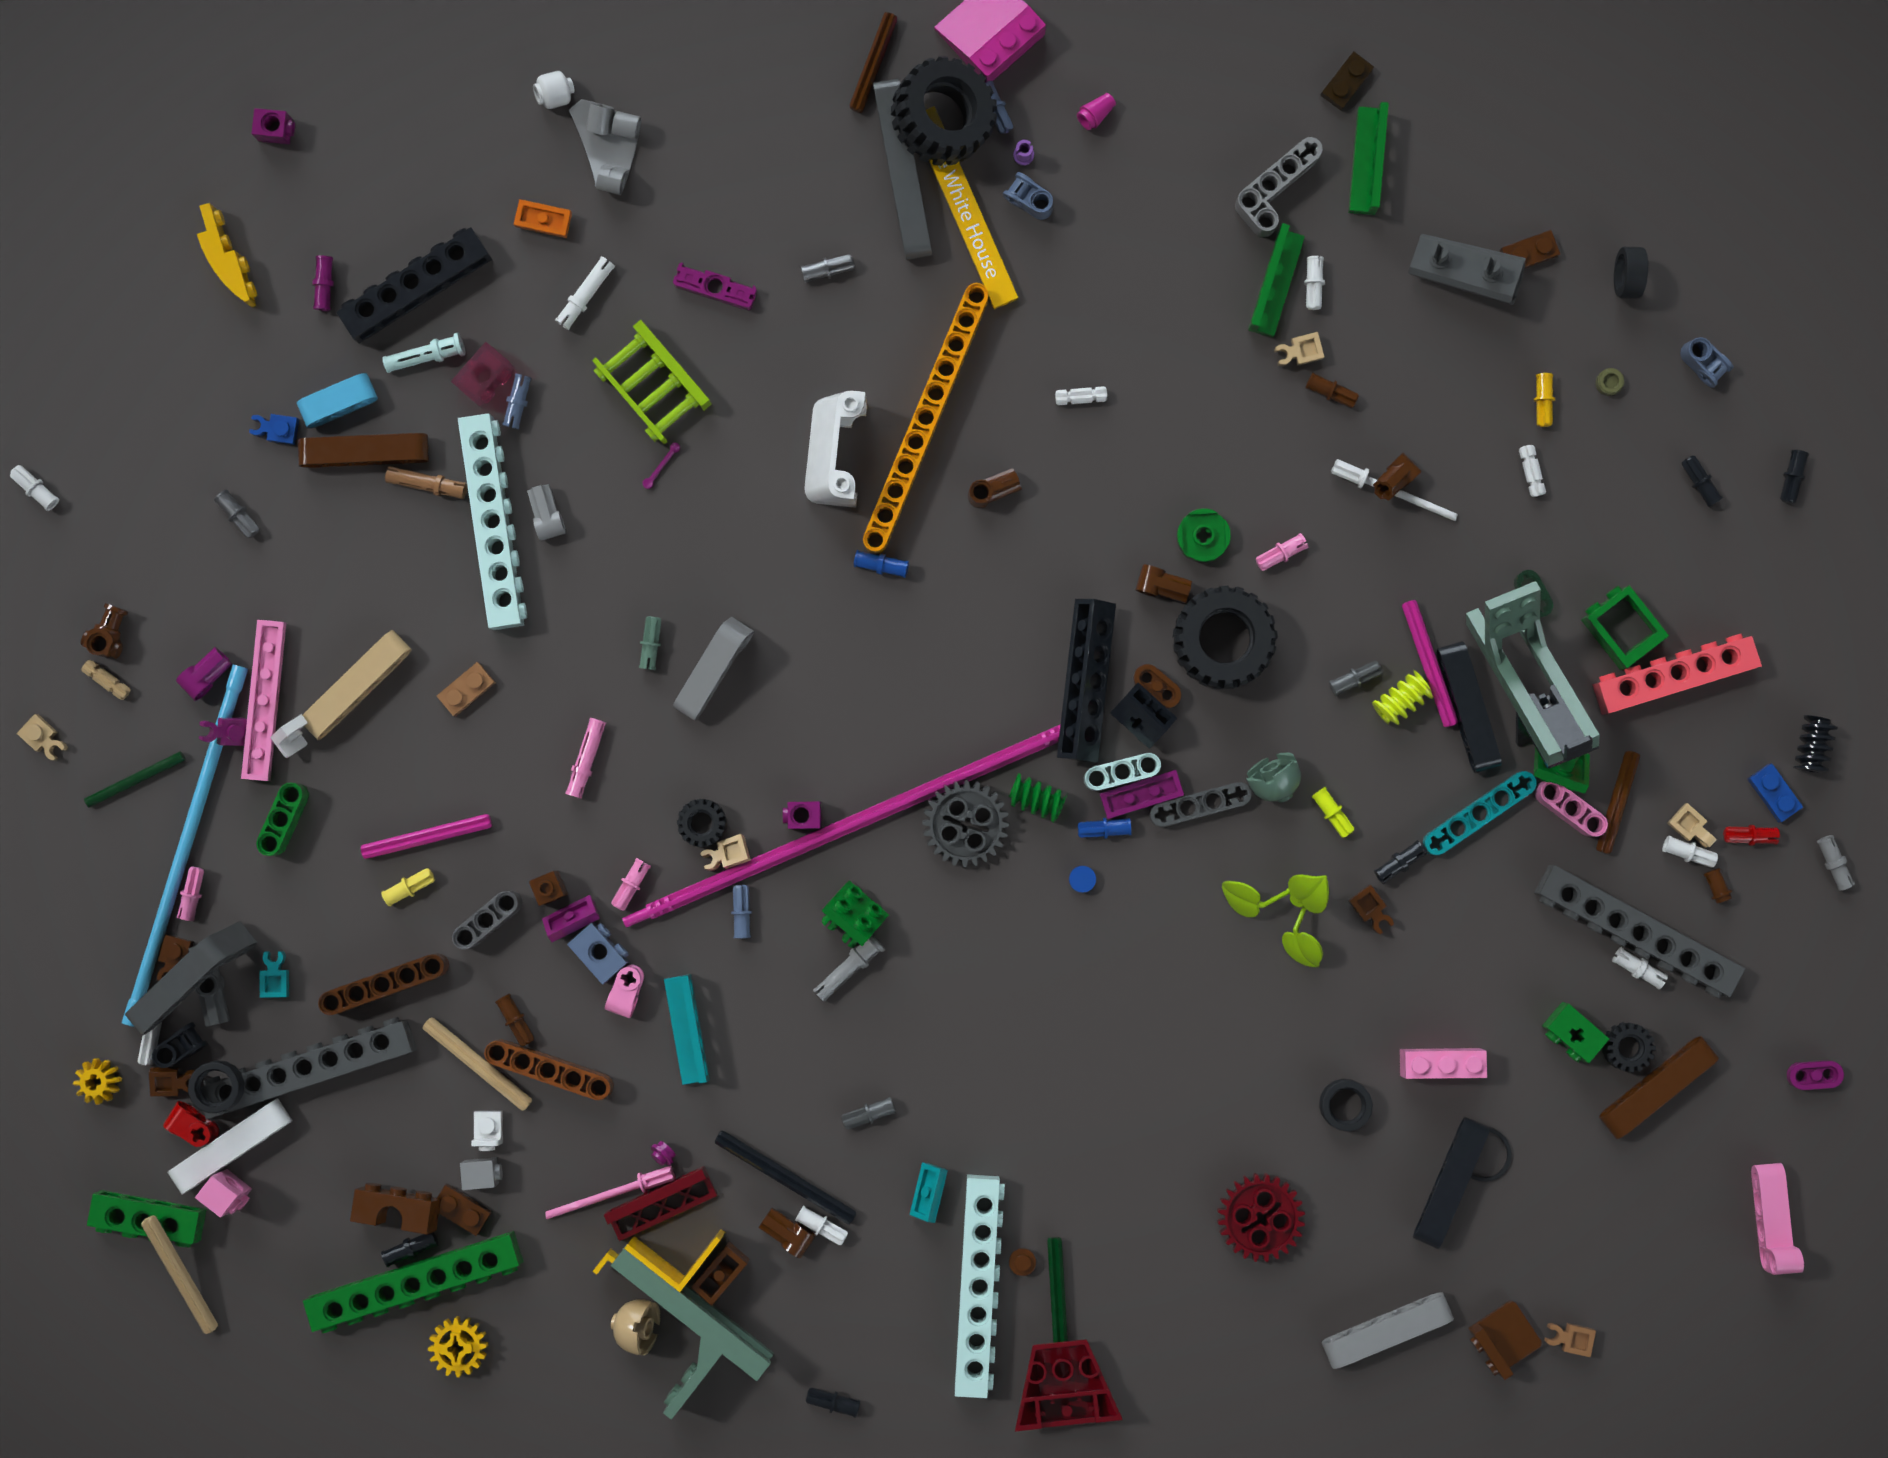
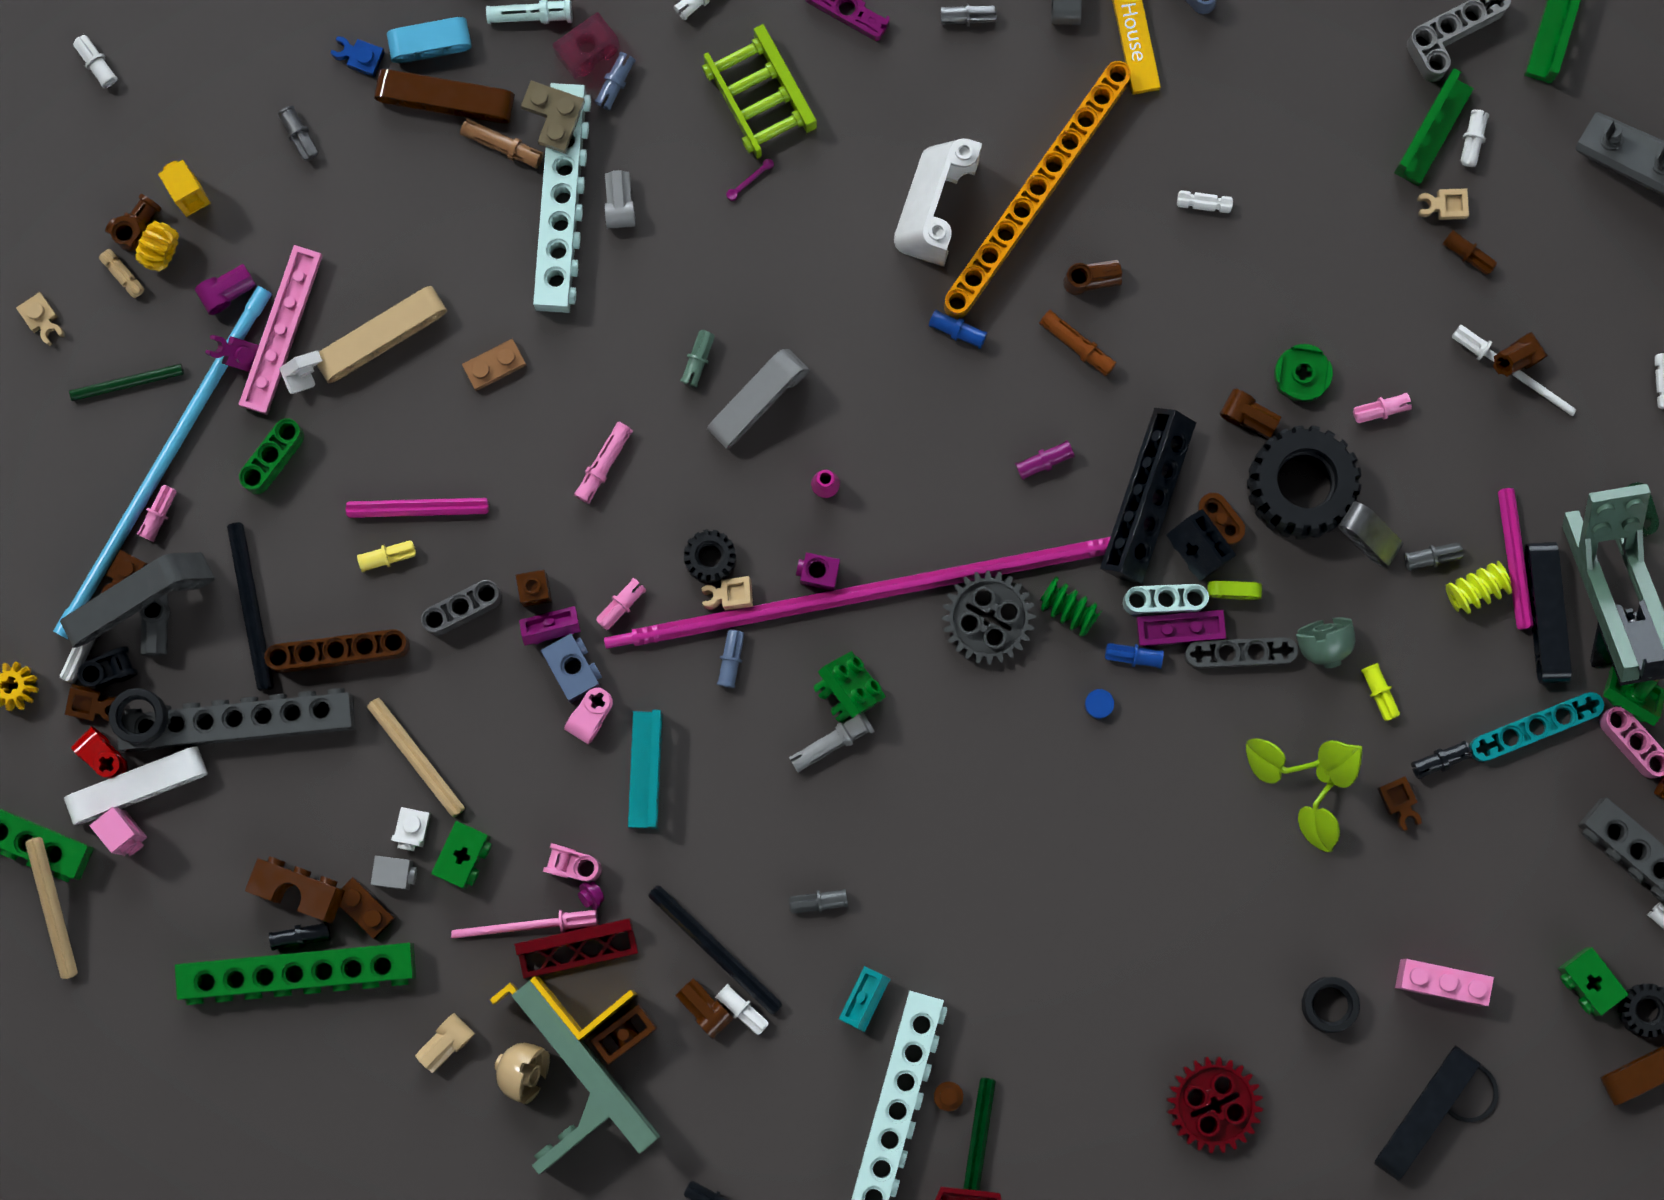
camera: 10 degrees right, 5 degrees down
(131, 649) = (157, 246): none -> yellow gear
(143, 590) = (184, 187): none -> yellow brick
(274, 981) = (223, 623): teal plate -> none
(294, 958) = (249, 605): none -> black axle
(469, 1345) = (329, 1037): yellow gear -> none
(472, 442) = (560, 111): none -> dark tan plate
(515, 1020) = (466, 719): reddish brown axle -> none
(528, 1155) = (448, 864): none -> green brick
(536, 1072) = (478, 772): dark orange beam -> none
(565, 1309) = (449, 1038): none -> tan piece
(634, 1129) = (567, 863): none -> bright pink piece
(799, 734) = (825, 490): none -> dark pink cone
(986, 667) = (1045, 460): none -> magenta pin
(996, 554) = (1082, 346): none -> dark orange pin
(1182, 749) = (1234, 590): none -> lime beam
(1295, 673) = (1370, 534): none -> flat silver beam

